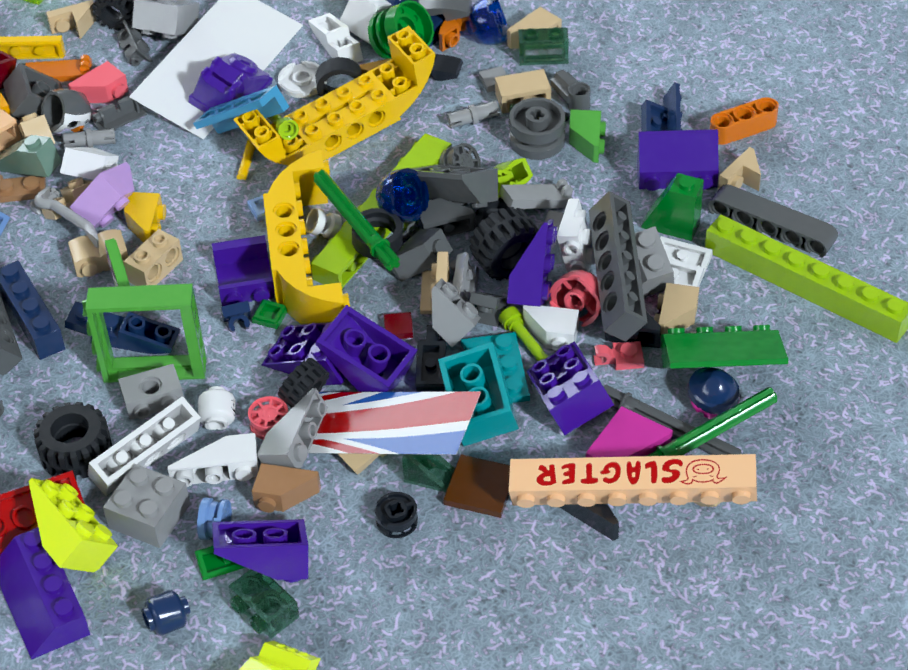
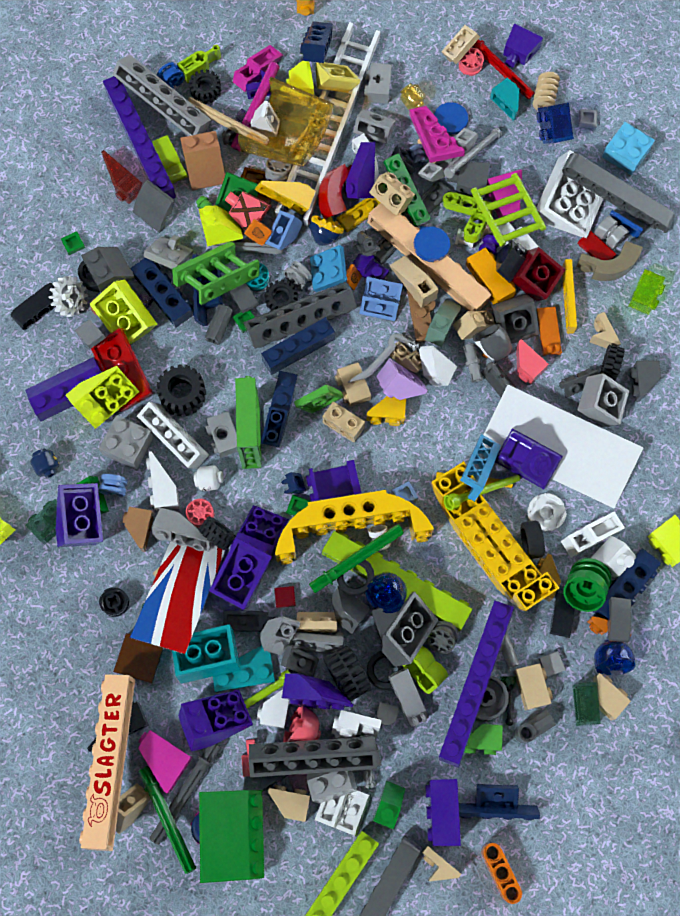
camera: 85 degrees right, 25 degrees up
(522, 112) = (476, 684): none -> dark purple brick

